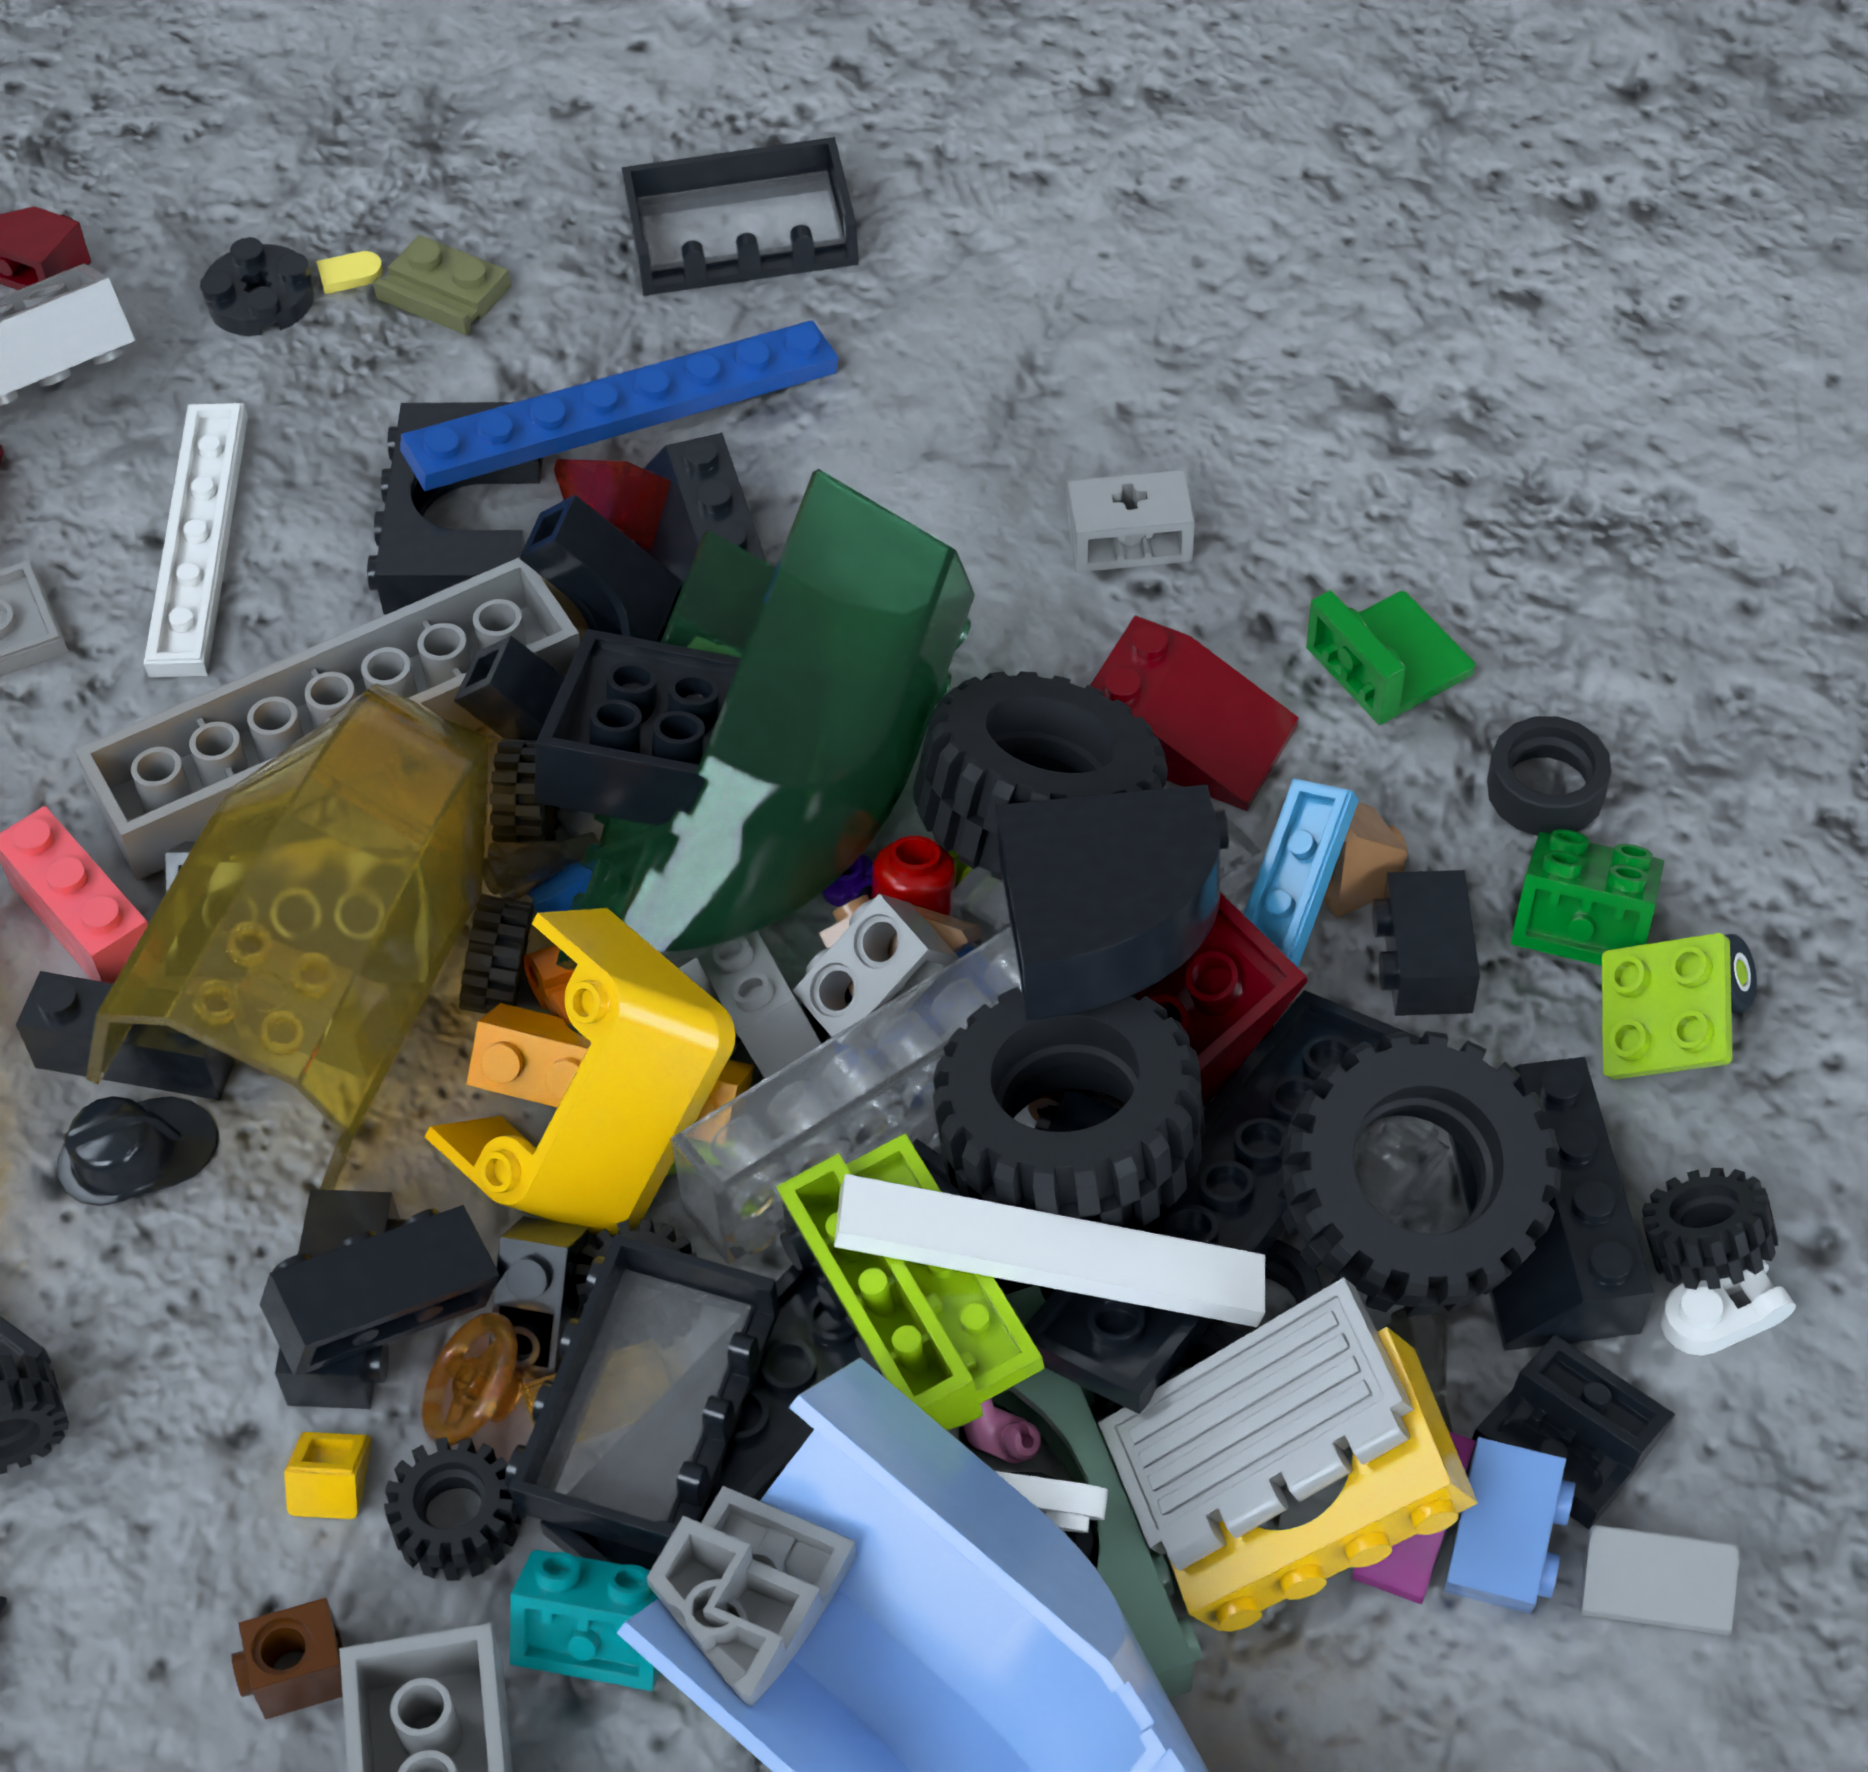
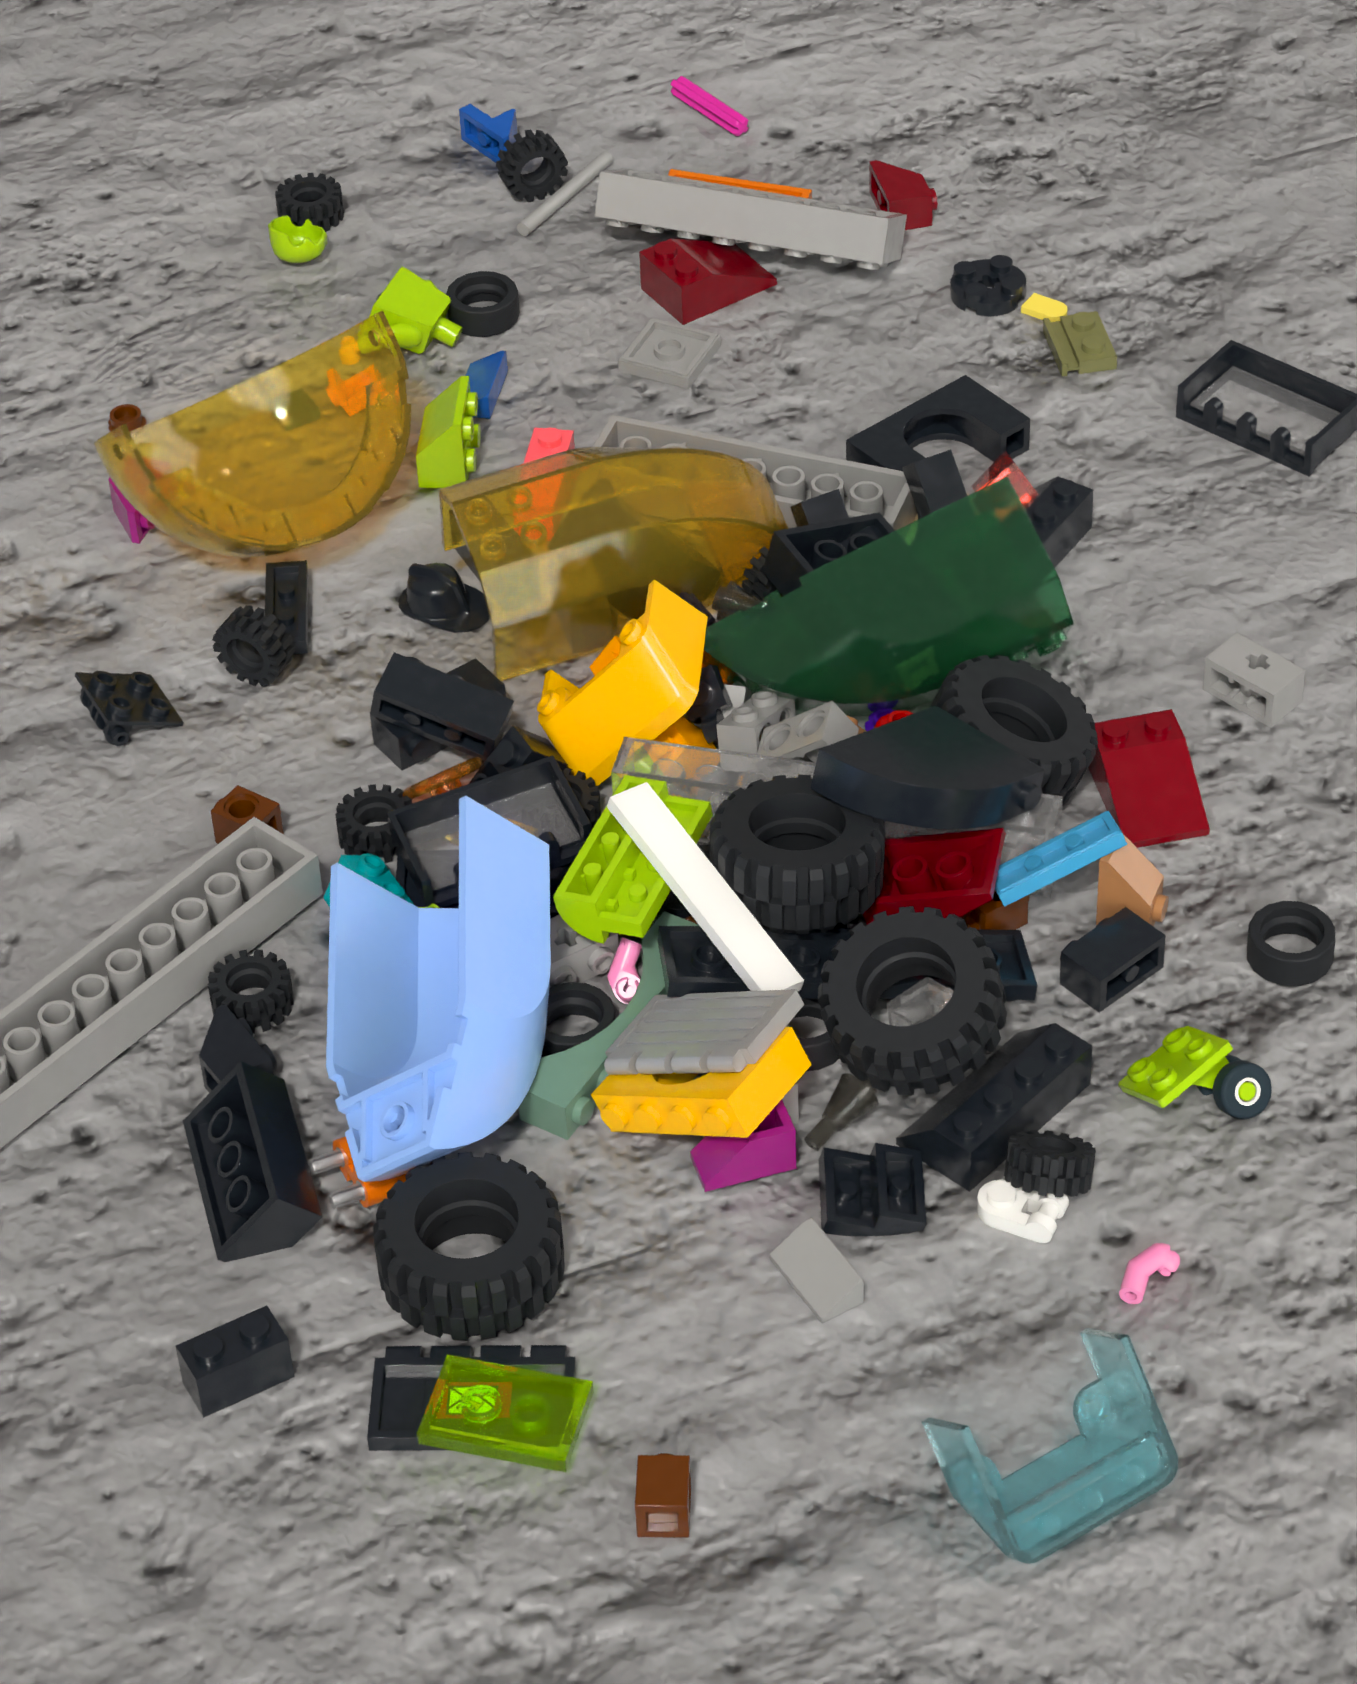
camera: 50 degrees right, 10 degrees down
(196, 541) = (806, 378): white tile -> none
(327, 1475) = (349, 772): yellow slope -> none
(617, 405) = (1073, 448): blue plate -> none
(749, 1586) = (408, 915): light grey slope -> none
(1064, 1502) = (579, 989): white plate -> none
(1385, 654) = (1293, 833): green bracket -> none
(1505, 1537) = (772, 1183): medium blue brick -> none
(1586, 897) = (1223, 997): green bracket -> none

